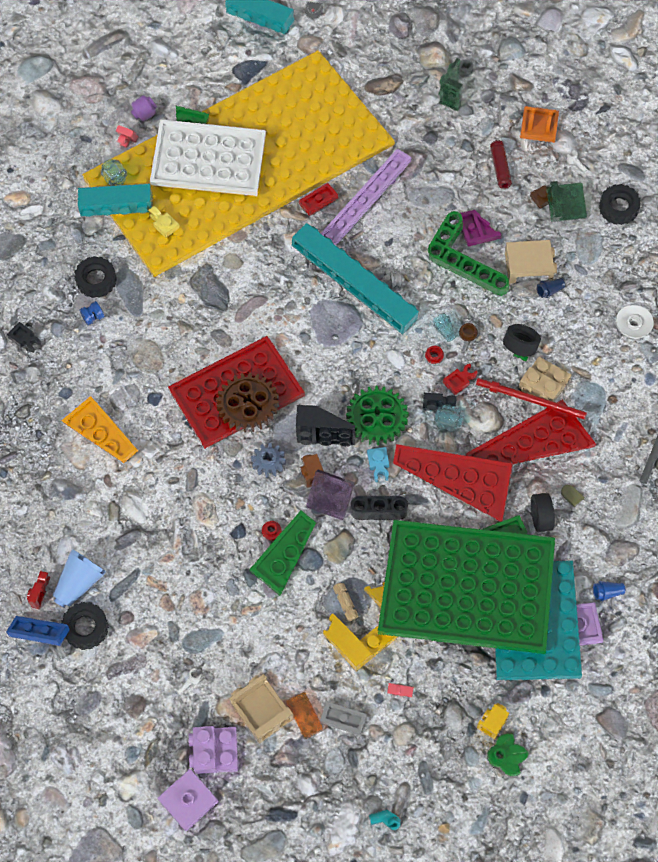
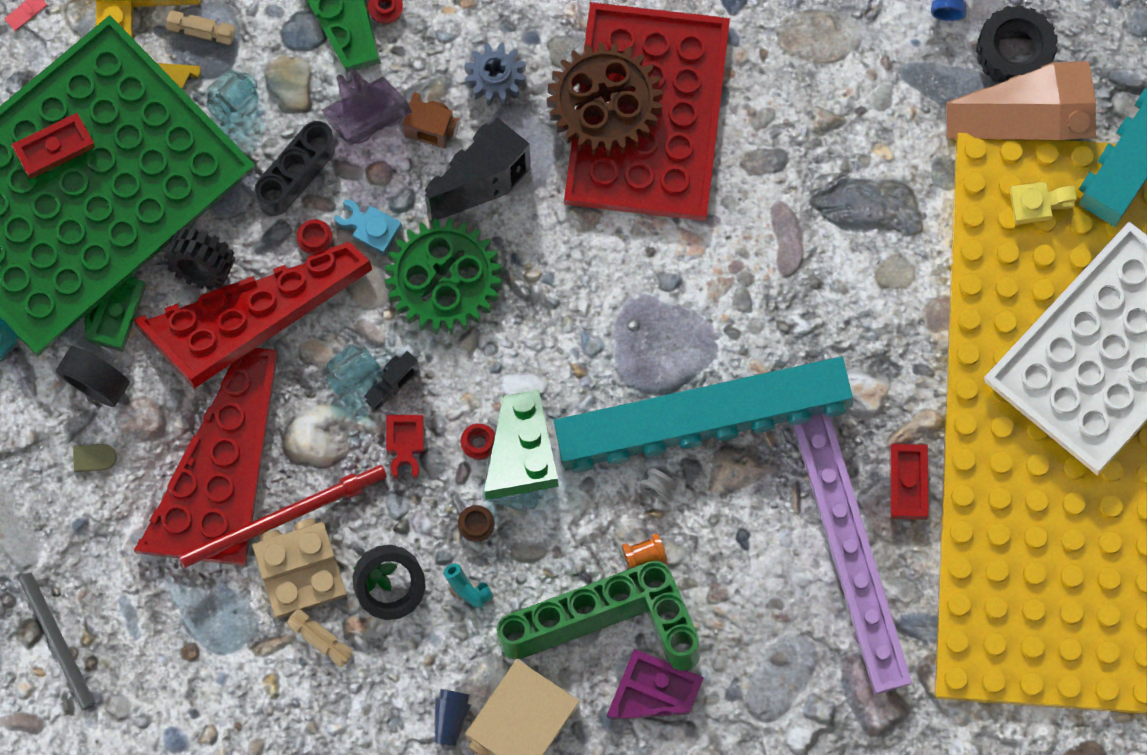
camera: 125 degrees right, 10 degrees up
(120, 246) = (1039, 105): none -> nougat wedge
(368, 559) = (232, 96): none -> clear light blue head
(402, 480) = (314, 236): none -> red plate
(424, 331) = (521, 449): none -> wing
(427, 265) = (645, 552): none -> orange bush
(454, 508) = (199, 258): none -> black tyre
(461, 598) = (53, 146): none -> red plate
(497, 313) = (463, 587): none -> teal arm
(564, 355) = (320, 638): none -> tan axle

